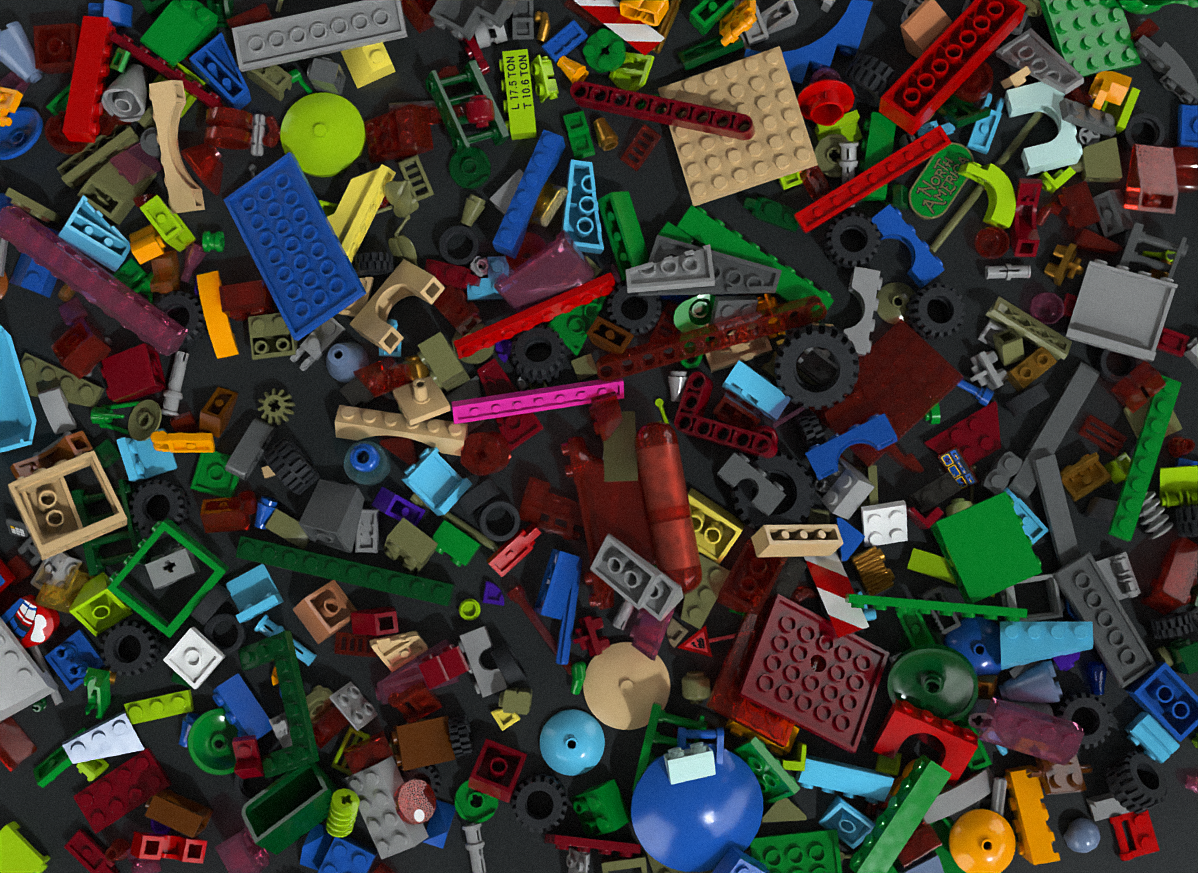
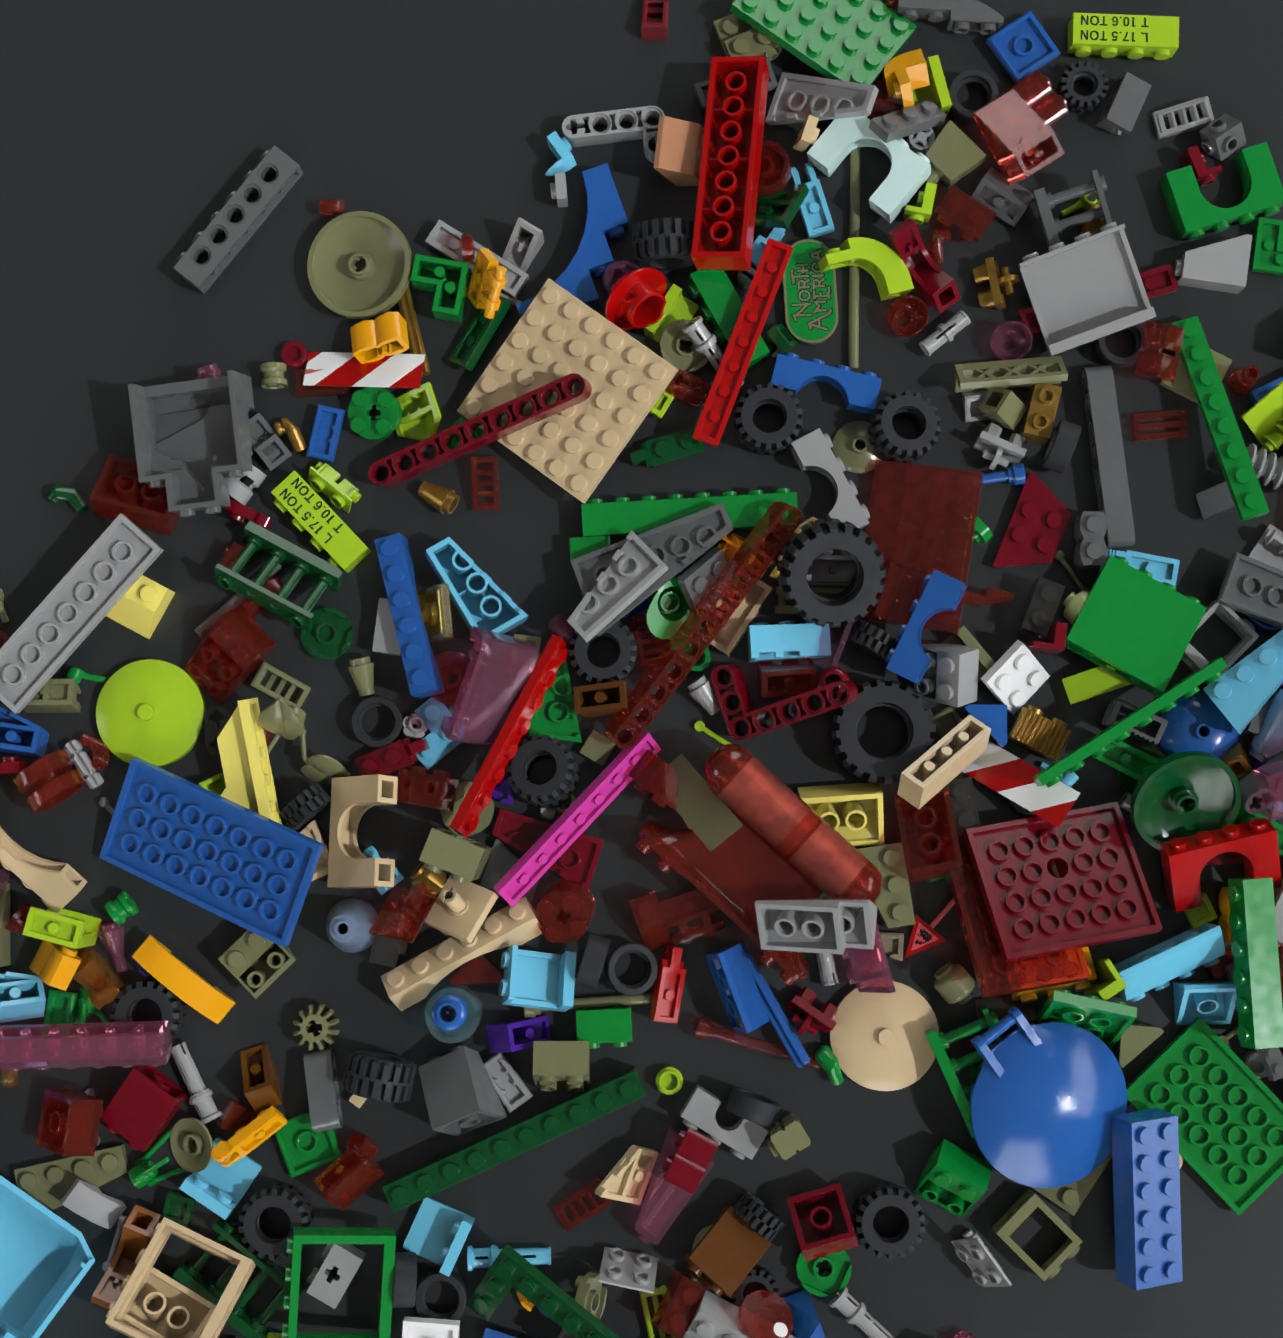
camera: 40 degrees left, 0 degrees up
(72, 311) = (30, 1090): clear pink slope -> none
(206, 164) = (54, 836): clear red slope -> none
(246, 300) = (202, 943): clear red brick -> none
(265, 509) = (386, 1140): blue cone -> none
(287, 528) = (423, 1141): olive slope -> none
(318, 342) = (309, 929): light grey hinge -> none
(325, 611) = (526, 1195): nougat slope -> none
(326, 76) = (109, 652): dark grey brick -> none
(329, 726) = (619, 1309): clear red slope -> none
(375, 621) = (584, 1167): dark red slope -> none
(419, 697) = (687, 1210): clear red plate -> none
(480, 111) = (295, 570): dark red head -> none
(493, 594) = (681, 1047): dark purple tile -> none
(505, 719) = (788, 1166): light yellow tile -> none
(572, 69) = (357, 456): light orange cone -> none
(574, 726) = (863, 1117): medium azure dish -> none
(579, 135) = (412, 517): green slope -> none
(585, 844) = (967, 1224): dark red wing -> none
(623, 231) = (534, 582): green brick -> none
(689, 763) = (1010, 1068): light aqua slope -> none
(767, 494) = (881, 739): dark grey arch -> none
(803, 592) = (987, 806): clear red arm -> none
(957, 464) = (1044, 564): tile -> none
(1056, 509) = (1171, 534): dark grey tile -> none
(1084, 476) = (1173, 481): pearl gold bracket -> none
(1093, 242) = (1004, 241): clear red slope -> none
(1118, 467) = (1199, 445): lime slope -> none

